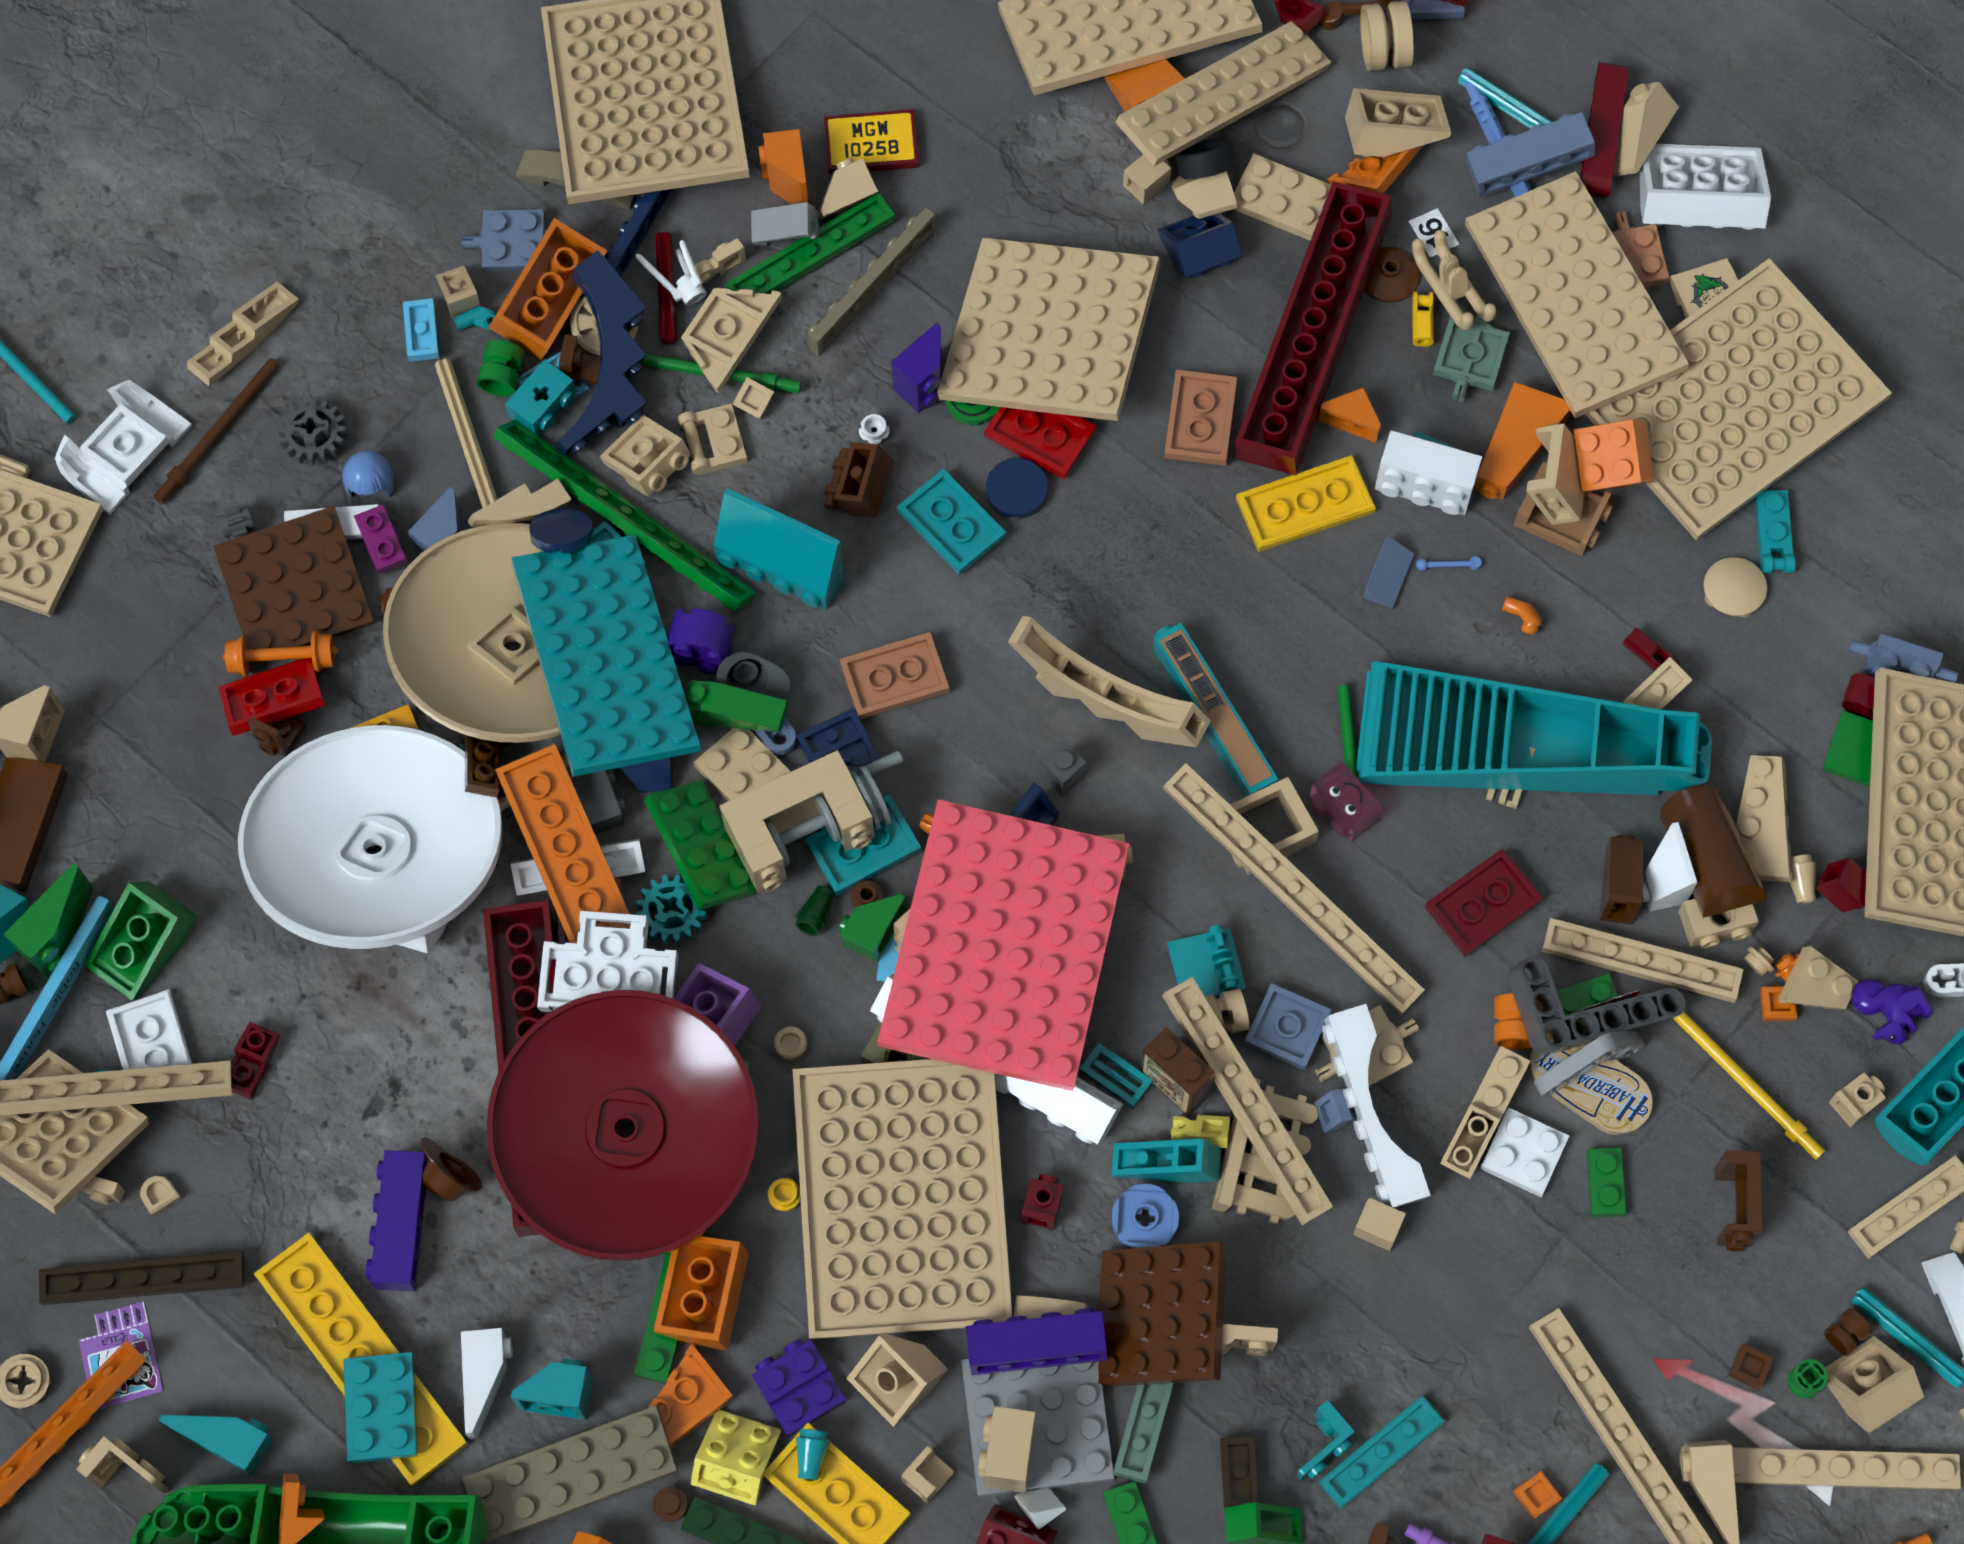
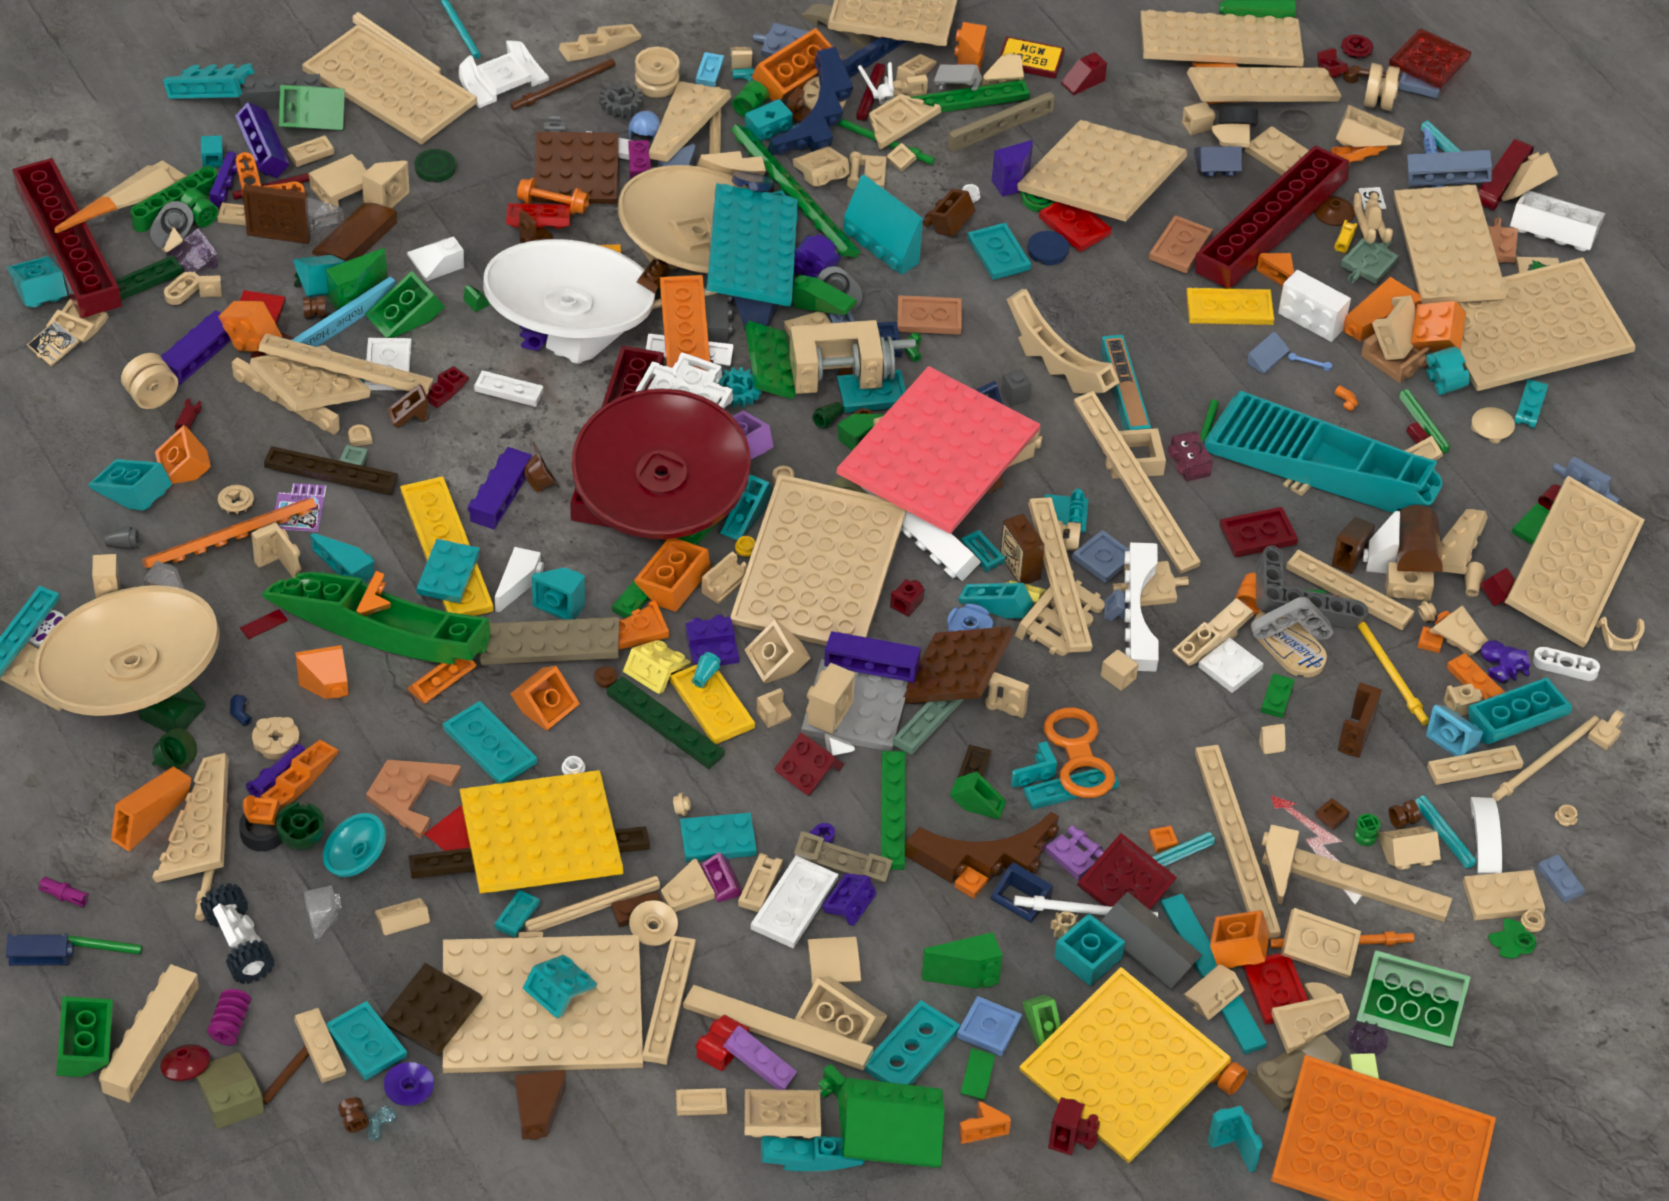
camera: 15 degrees right, 20 degrees down
(85, 649) = (435, 165): none -> dark green tile
(150, 824) = (438, 258): none -> white slope
(166, 1241) = (354, 455): none -> sand green plate
(213, 1125) = (412, 404): none -> reddish brown slope
(231, 879) = (475, 298): none -> green slope
(344, 1031) = (508, 388): none -> white plate
(348, 367) = (657, 72): none -> tan wheel
(421, 428) = (686, 113): none -> tan wing
(708, 239) = (916, 66): none -> tan slope
(771, 1101) = (748, 508): none -> teal slope
(776, 1267) = (723, 578): none -> tan hinge
(887, 737) = (913, 353): none -> green arm
(960, 150) = (1085, 74): none -> dark red slope
(1374, 1393) = (1079, 752): none -> orange bar
(1627, 1267) = (1272, 739): none -> tan slope
(1640, 616) = (1423, 419): none -> green axle
(1648, 523) = (1447, 370): none -> teal brick
(1865, 1054) = (1469, 672): none -> orange plate
(1868, 1163) = (1453, 731): none -> medium azure slope

